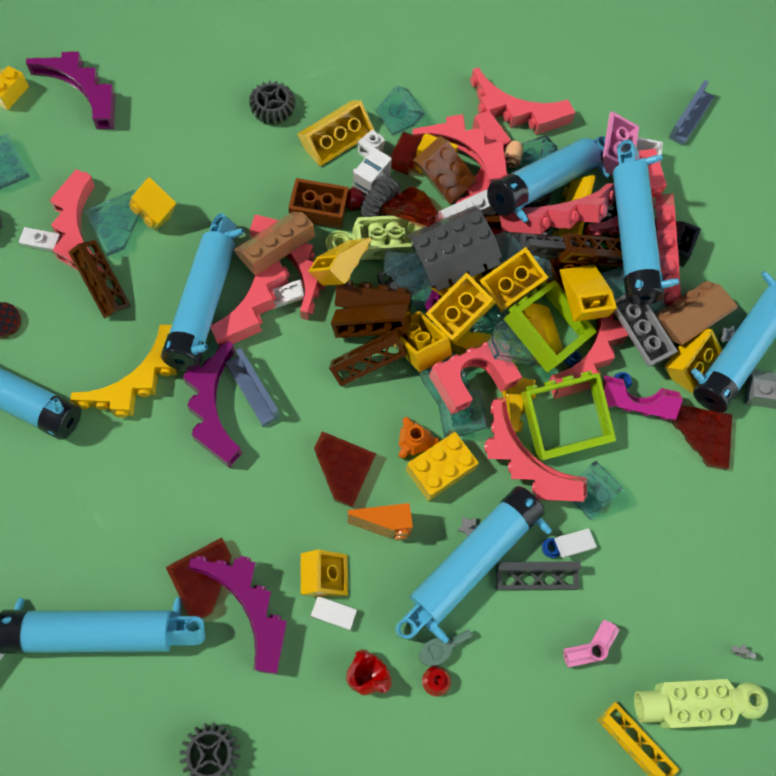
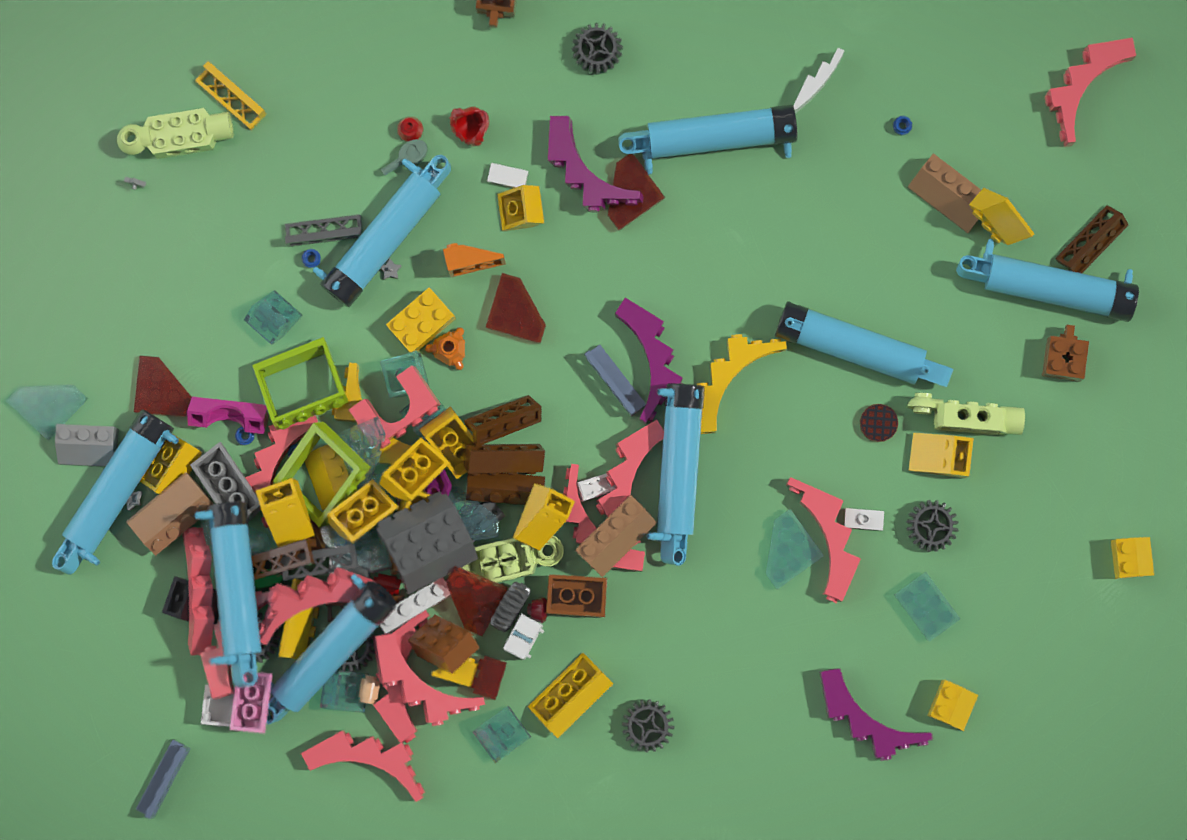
camera: 175 degrees left, 15 degrees up
(96, 279) = (788, 469): reddish brown fence -> none
(152, 204) = (751, 564): yellow slope -> none
(371, 141) = (528, 683): white brick -> none
(548, 482) = (319, 316): coral arch -> none
(575, 543) = (289, 263): white tile -> none
(583, 653) = (280, 165): bright pink piece -> none

